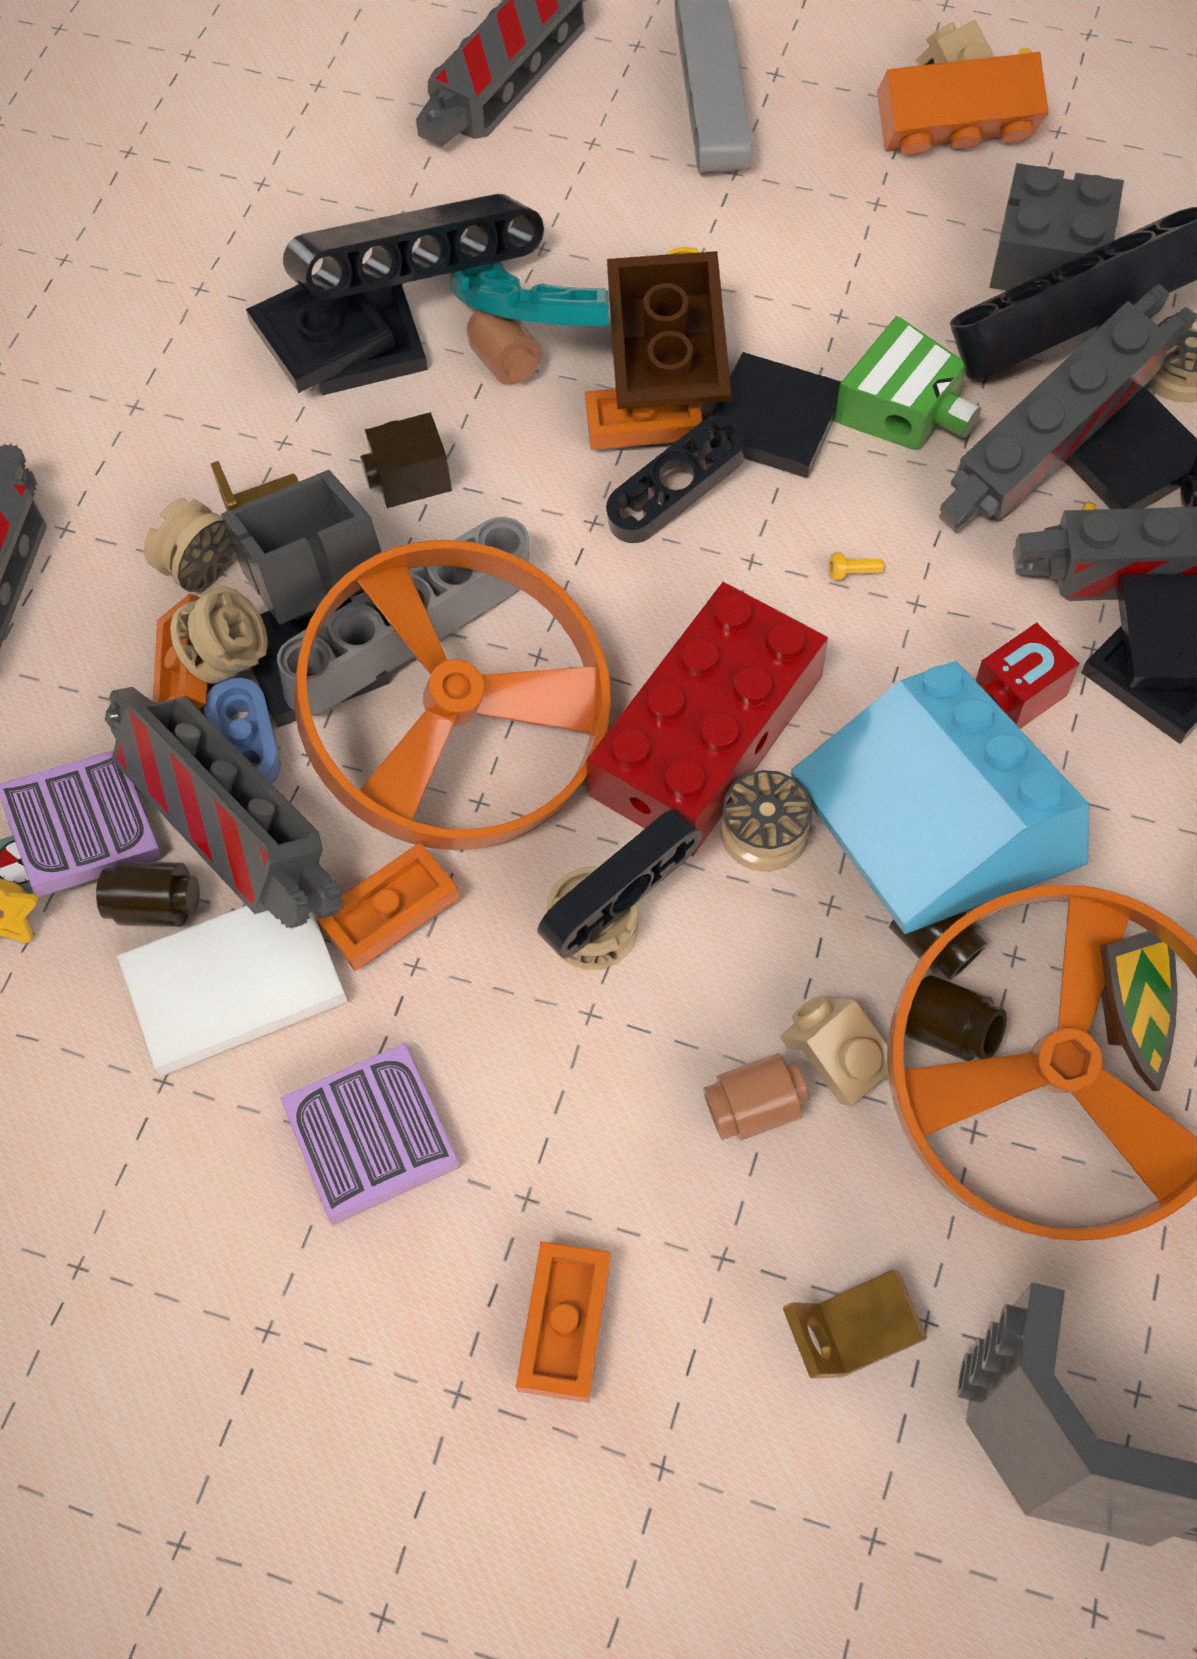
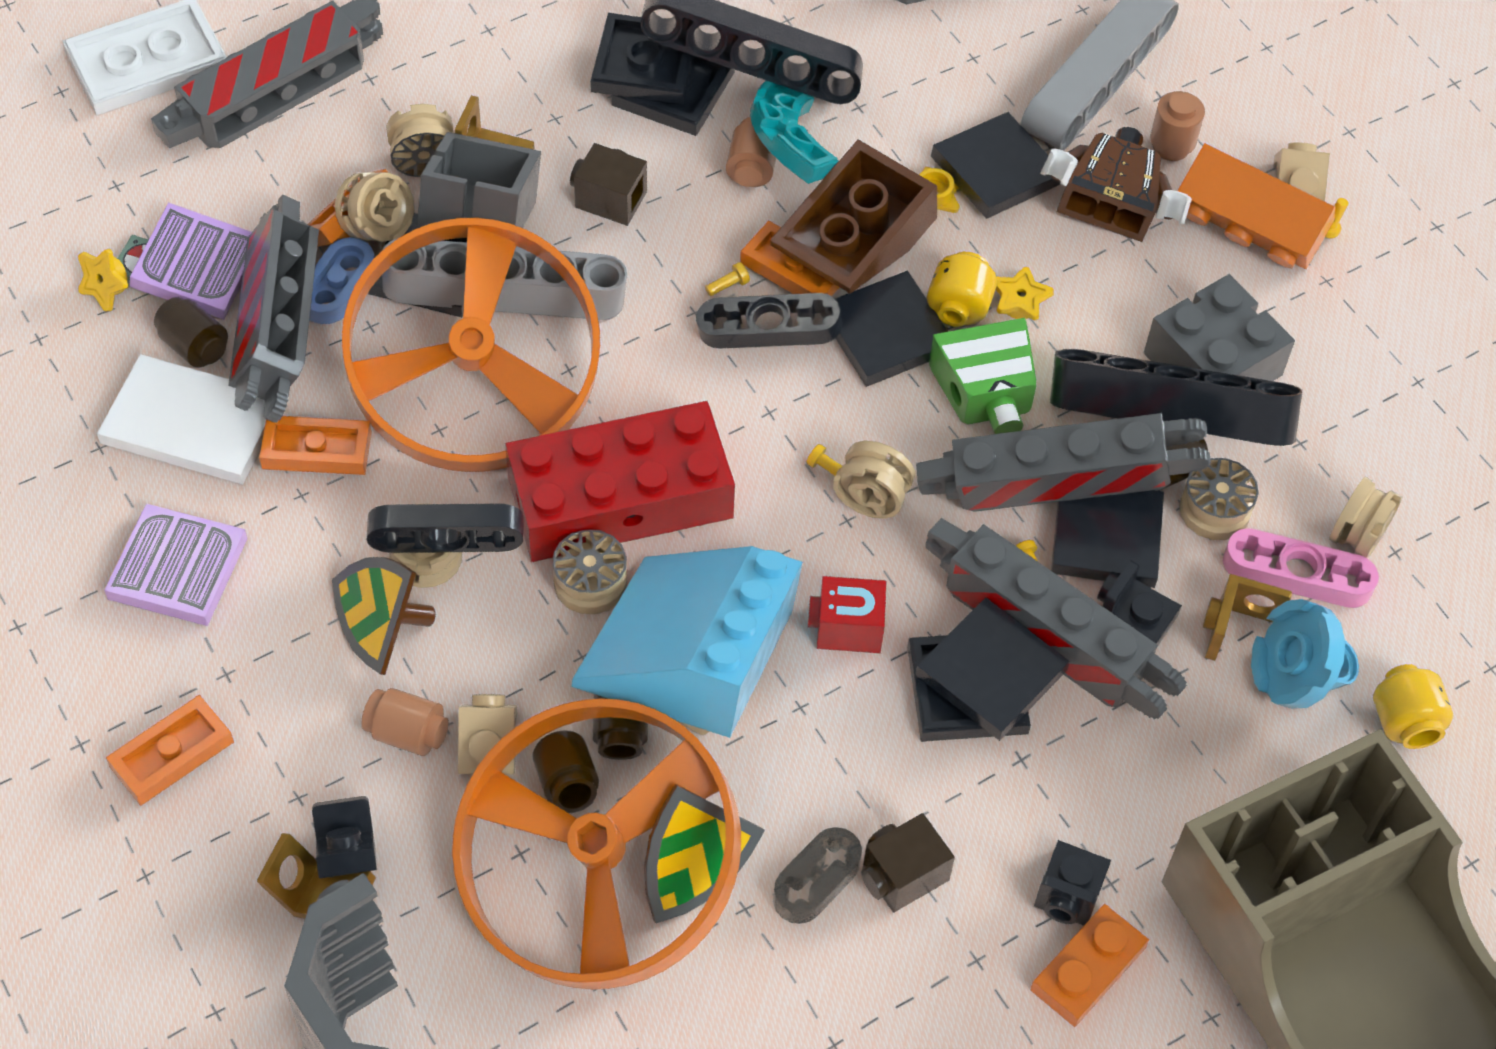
camera: 35 degrees right, 5 degrees down
(601, 460) = (738, 274): none -> yellow piece
(619, 1013) = (372, 606): none -> shield
(715, 213) = (995, 164): none -> black tile
(810, 331) = (962, 289): none -> yellow head
(830, 79) = (1177, 125): none -> nougat brick
(830, 1263) = (344, 837): none -> black bracket
(840, 160) = (1115, 184): none -> reddish brown torso
(848, 319) = (1024, 306): none -> yellow plate
(920, 546) = (872, 482): none -> tan wheel

